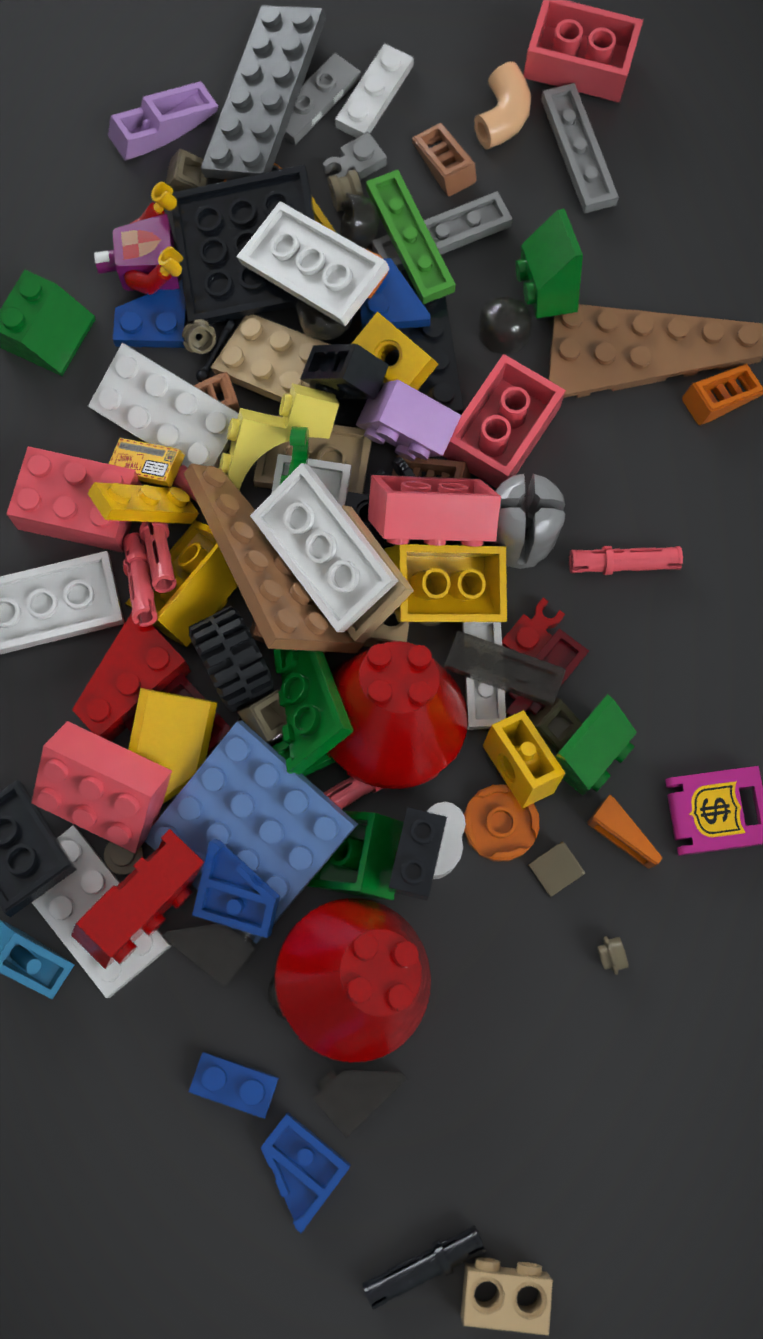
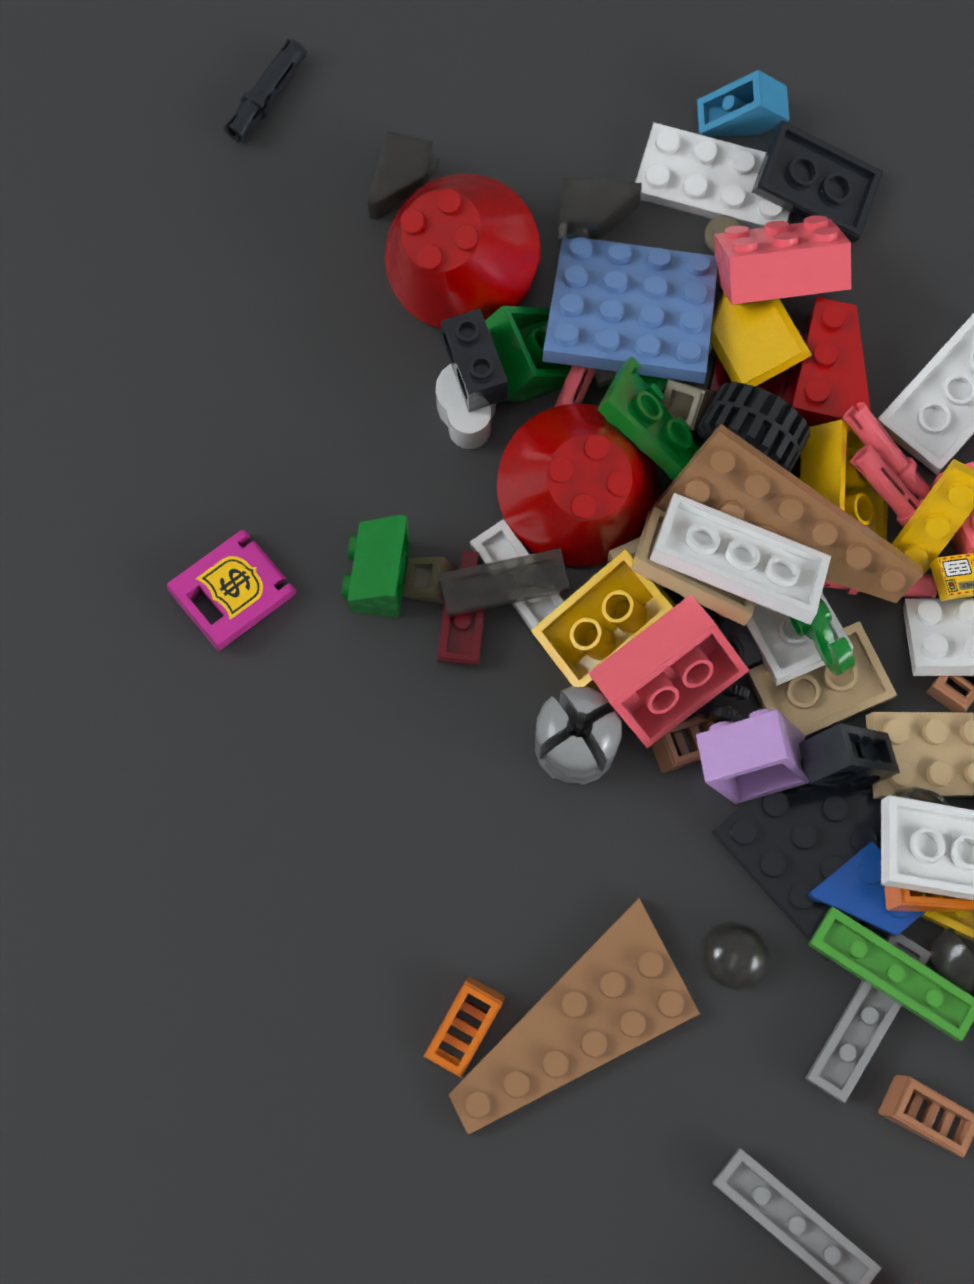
camera: 150 degrees right, 0 degrees up
(138, 902) = (680, 189): red wedge -> none
(233, 1085) = (504, 126): blue plate -> none
(234, 893) = (606, 246): blue wing -> none
(258, 432) = (883, 660): light yellow arch -> none
(303, 1168) = (408, 100): blue wing -> none
(381, 337) = (795, 829): yellow brick -> none
(499, 825) = (420, 462): orange tile -> none
(503, 1310) = (183, 97): tan brick -> none
(504, 421) = (663, 831): coral brick -> none
(511, 110) = (900, 1225): light nougat cylinder -> none
(523, 759) = (436, 513): yellow brick -> none
(531, 635) = (501, 645): red plate -> none
(551, 267) = (726, 1029): green slope -> none
(556, 869) = (346, 452): dark tan slope -> none
(613, 954) = (254, 409): dark tan plate -> none
(621, 830) = (313, 515): orange slope -> none
(633, 559) = (459, 774): coral pin -> none

